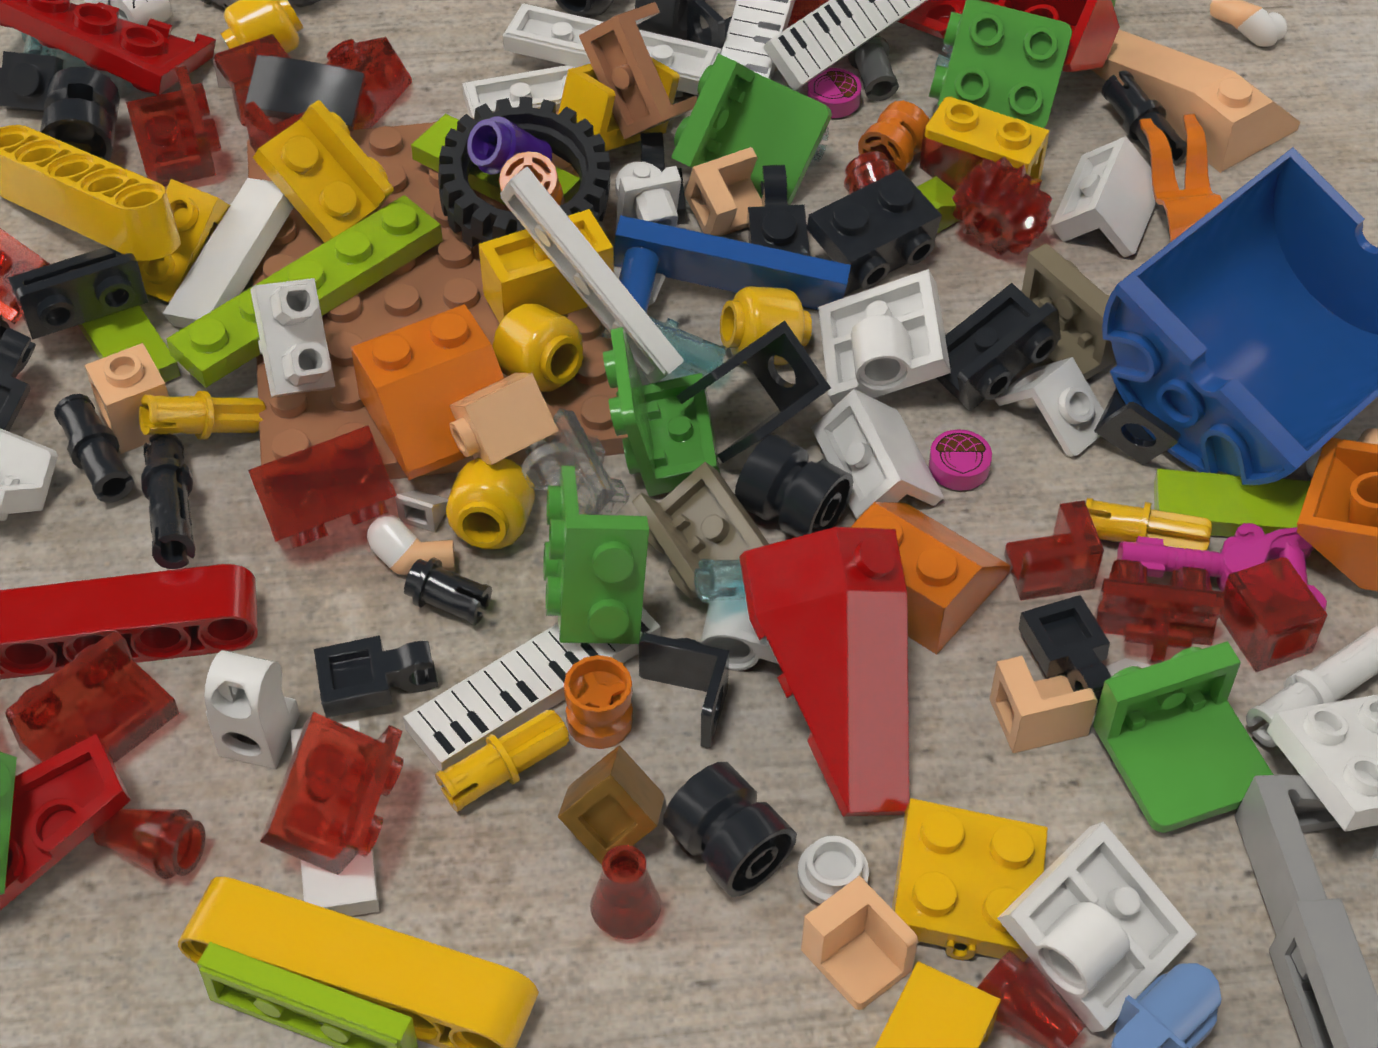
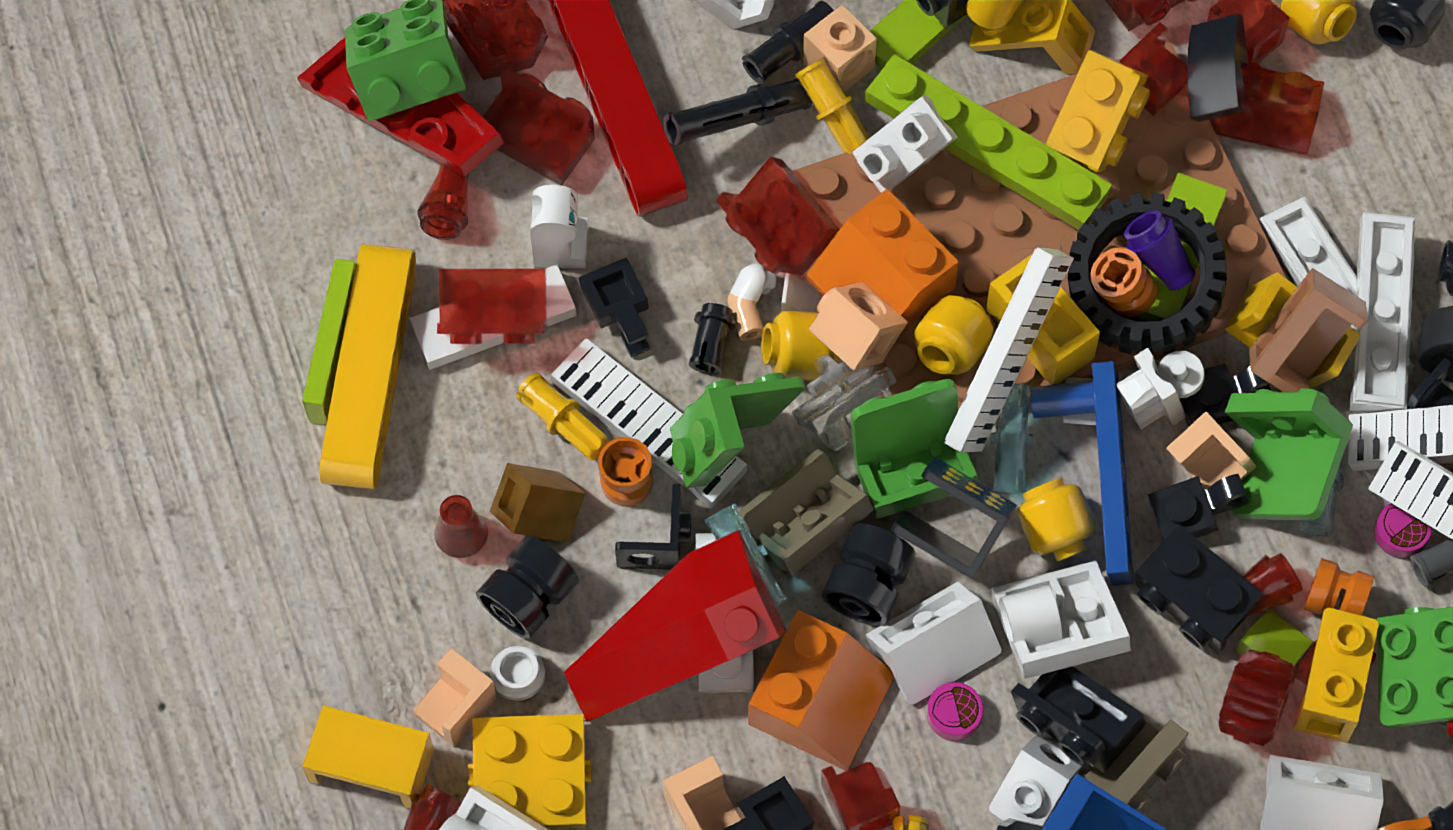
camera: 80 degrees right, 15 degrees up
(231, 252) = (1009, 71): white tile -> none

